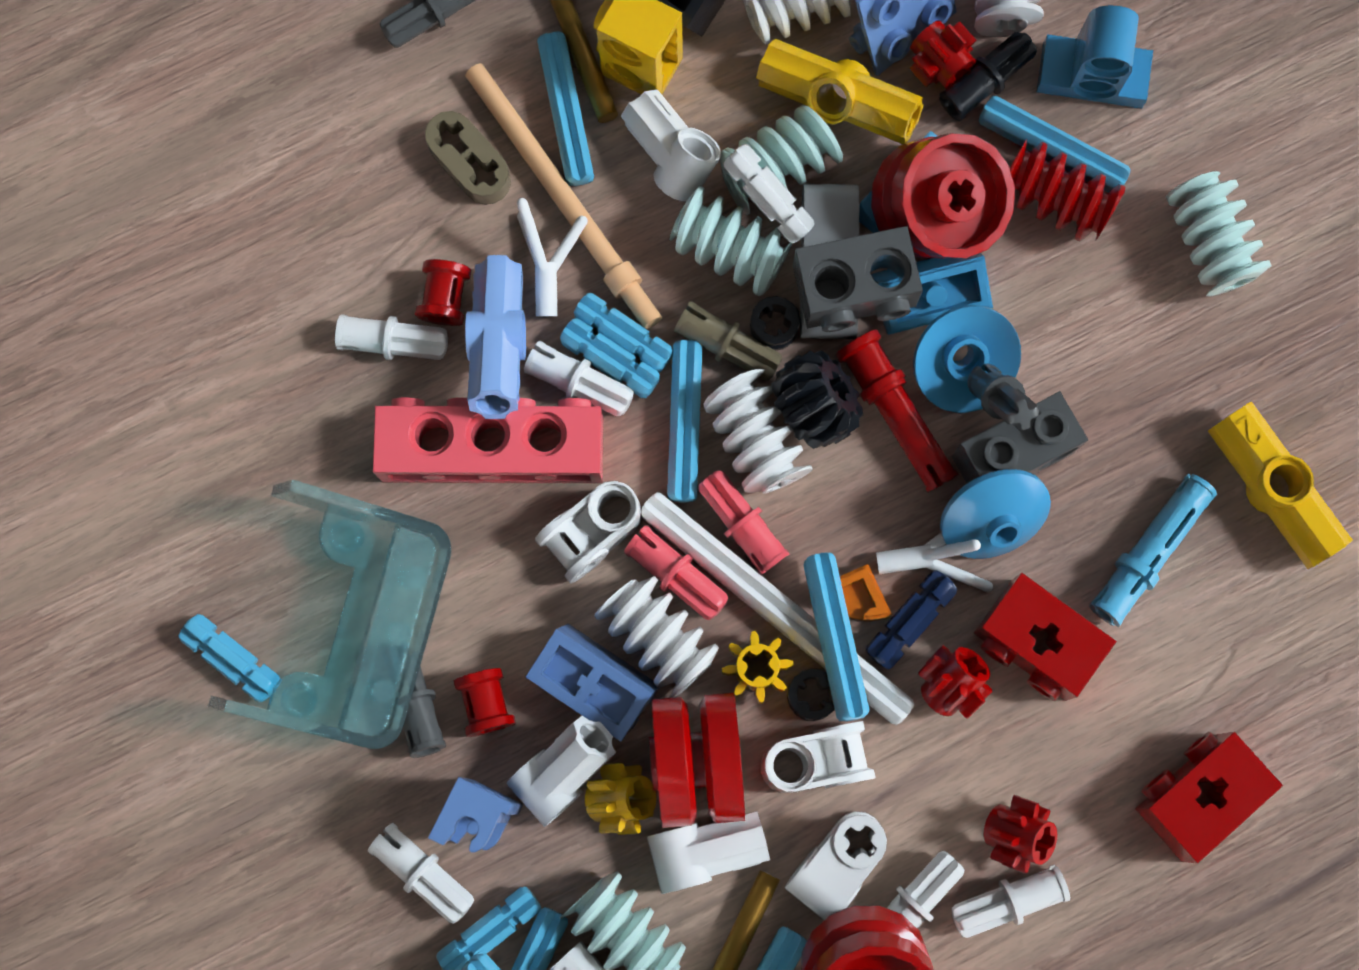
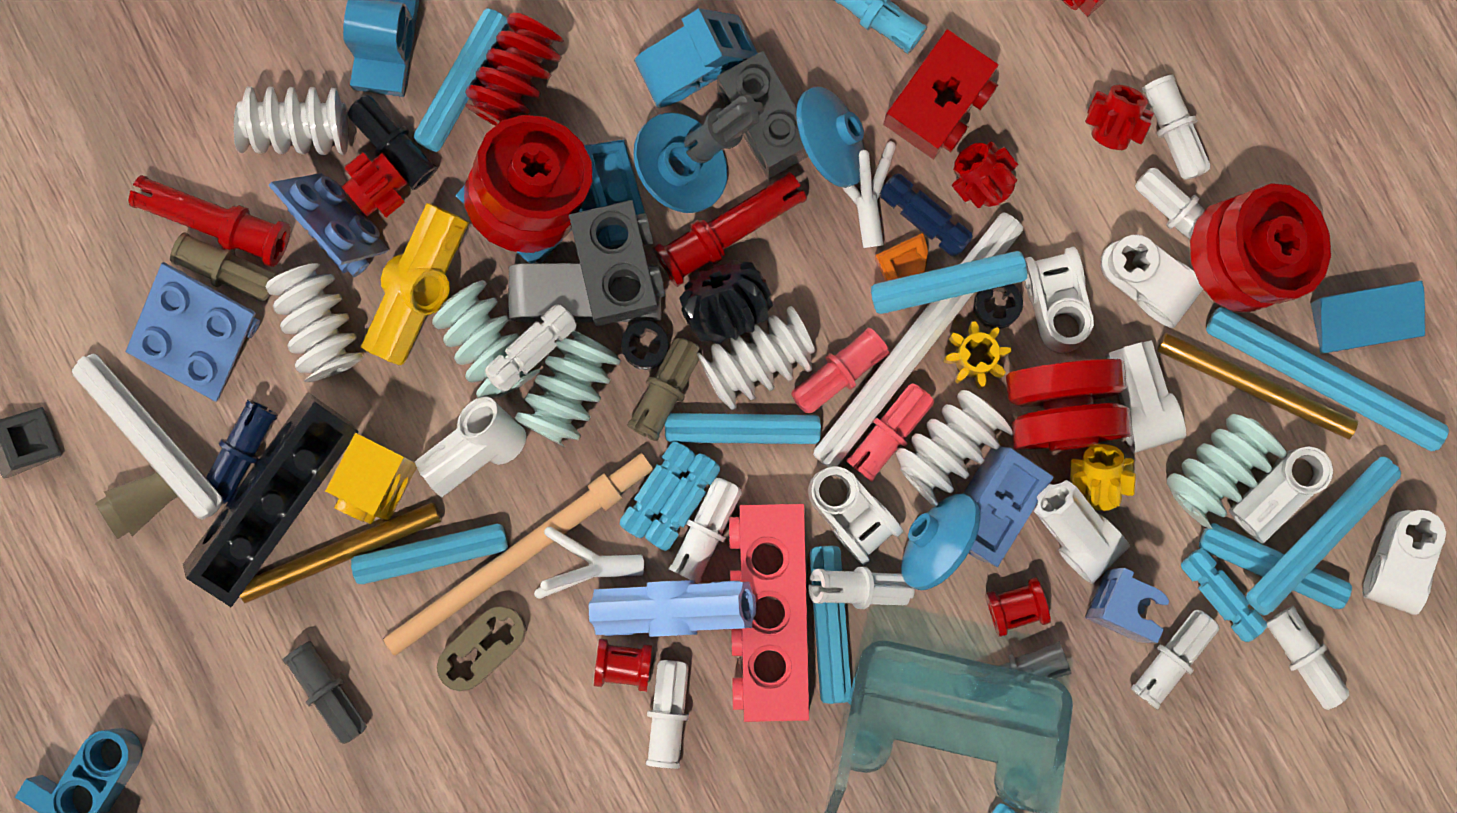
camera: 95 degrees left, 5 degrees up
(480, 504) = (831, 633): none -> medium azure axle
(511, 534) = (860, 588): none -> white axle
(555, 615) = (940, 541): none -> dark azure dish
(1087, 374) = (694, 55): none -> dark azure tile

